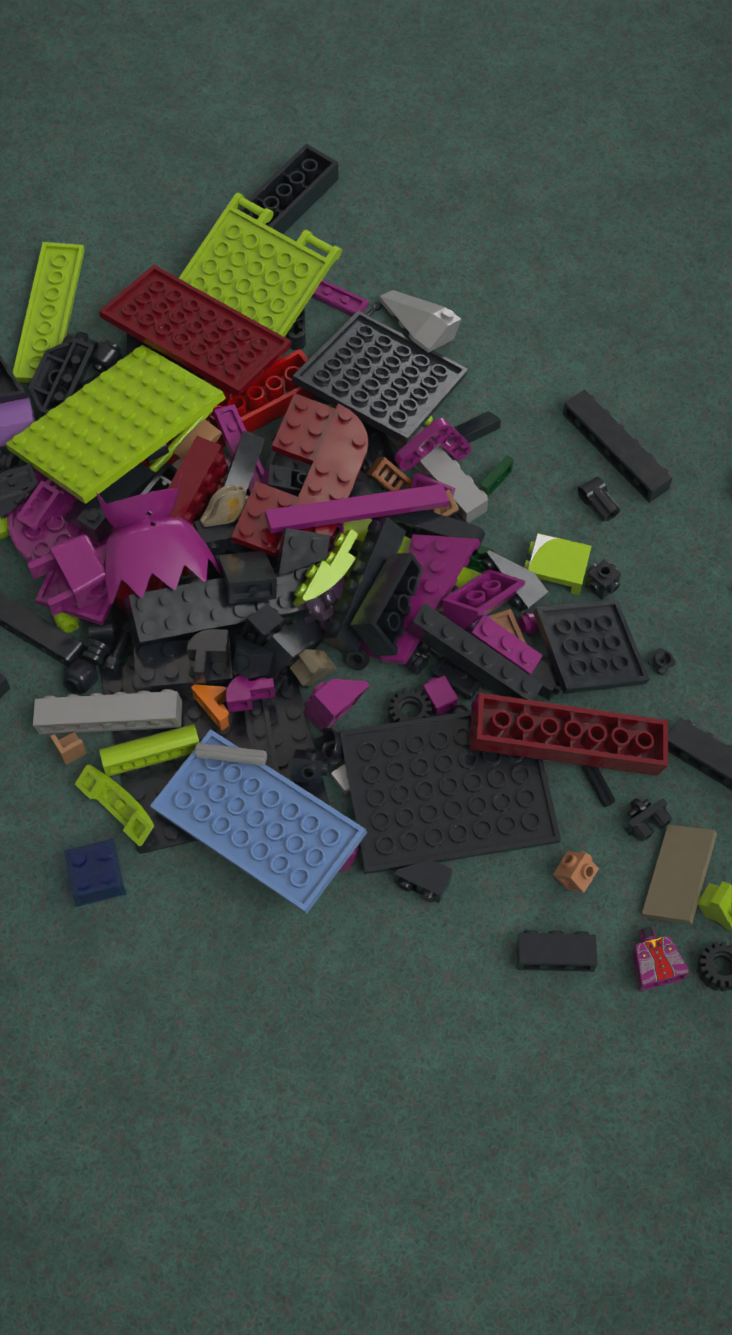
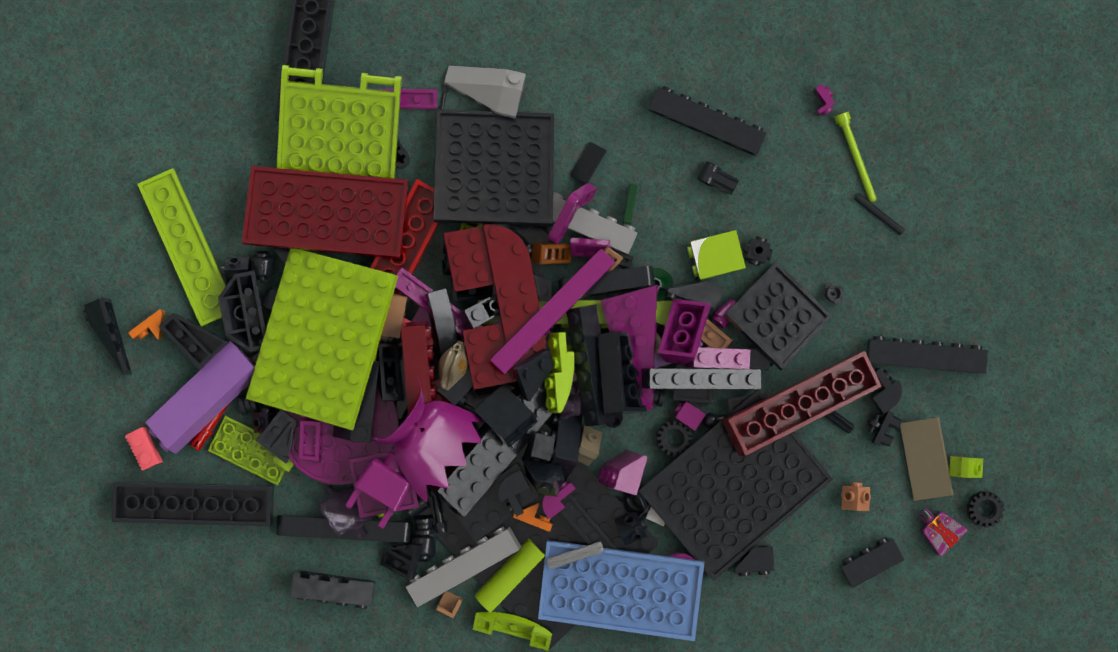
camera: 25 degrees left, 25 degrees up
(20, 597) = (339, 516): none -> clear purple plate
(51, 671) = (402, 559): none -> black wing
(670, 785) = (889, 395): none -> black brick

